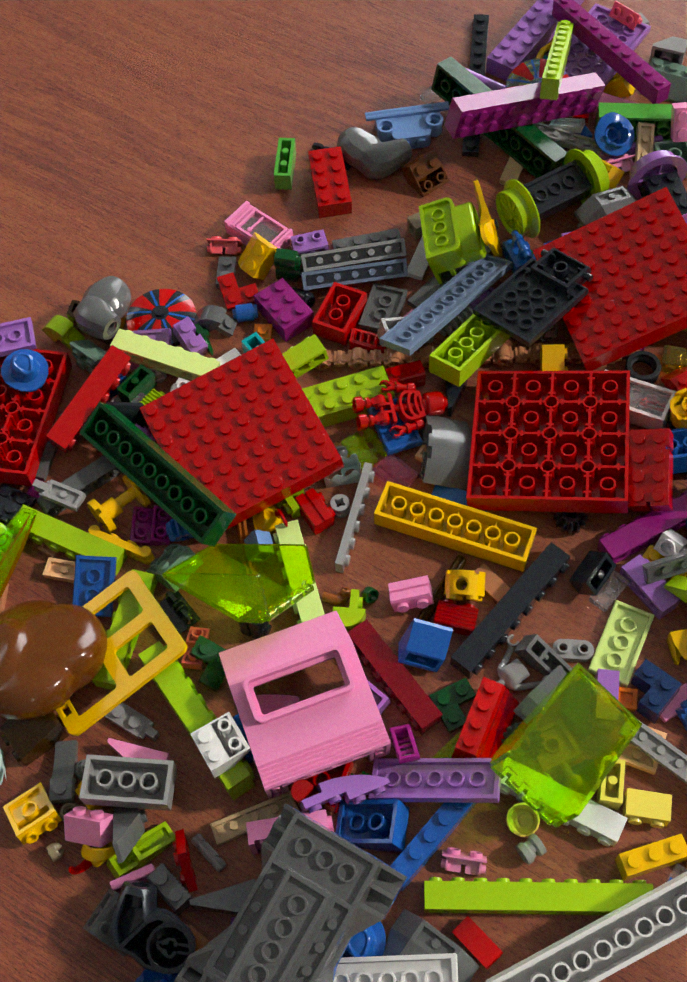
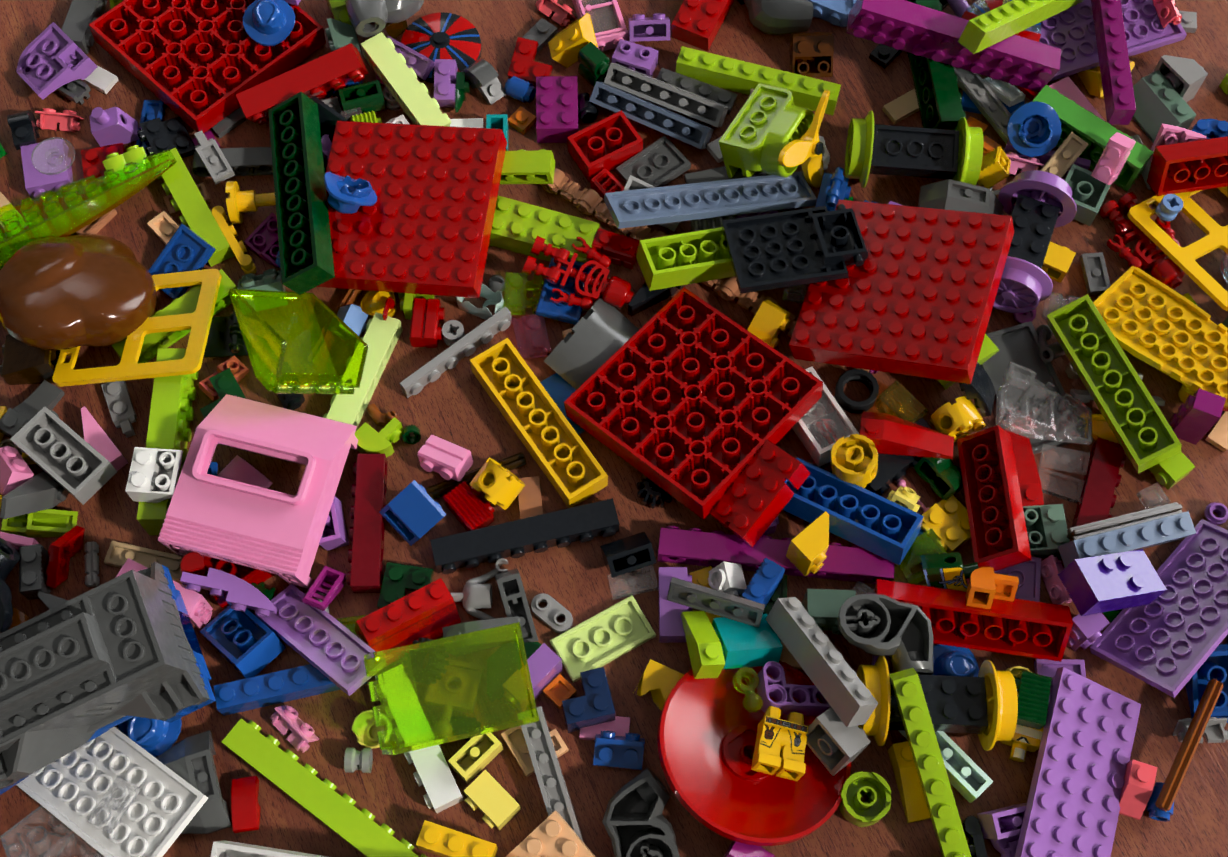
camera: 30 degrees right, 5 degrees up
(198, 450) = (347, 193): none -> blue hat
(303, 219) = (649, 28): none -> medium lavender brick
(395, 212) = (744, 76): none -> lime brick

